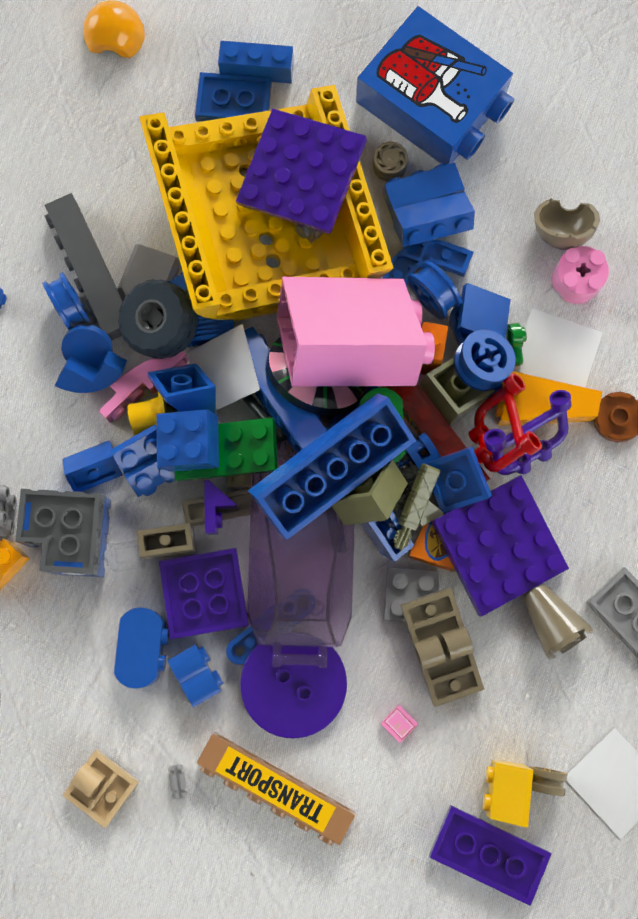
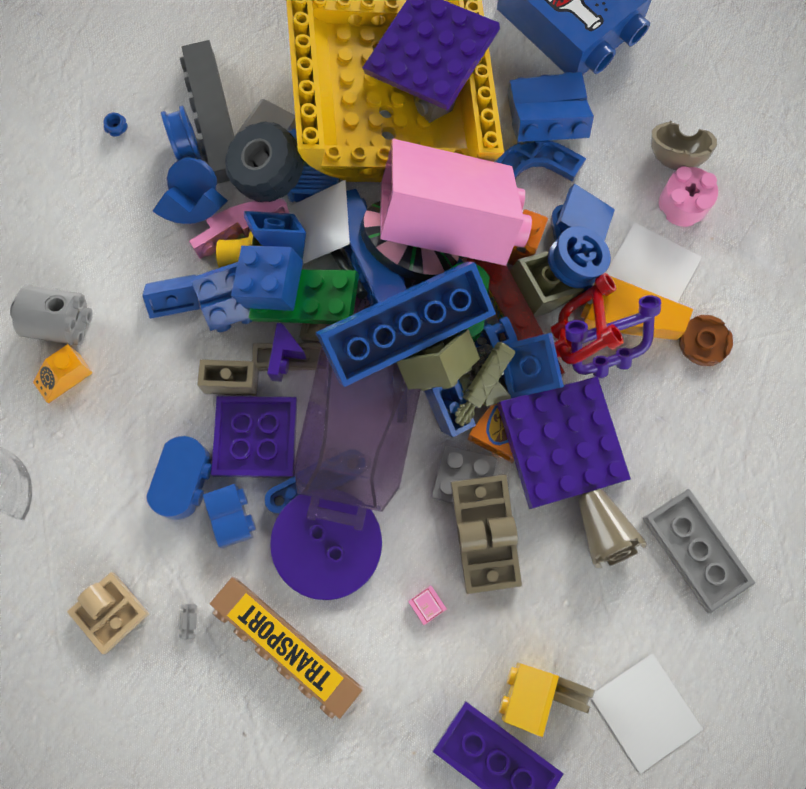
camera: 10 degrees right, 5 degrees down
(69, 529) = (131, 346): dark grey piece -> none
(124, 556) = (182, 385): clear brick -> none
(390, 161) = (519, 62): dark tan wheel -> none
(434, 290) = (541, 184): blue wheel -> none
(516, 336) = (616, 244): green plate -> none

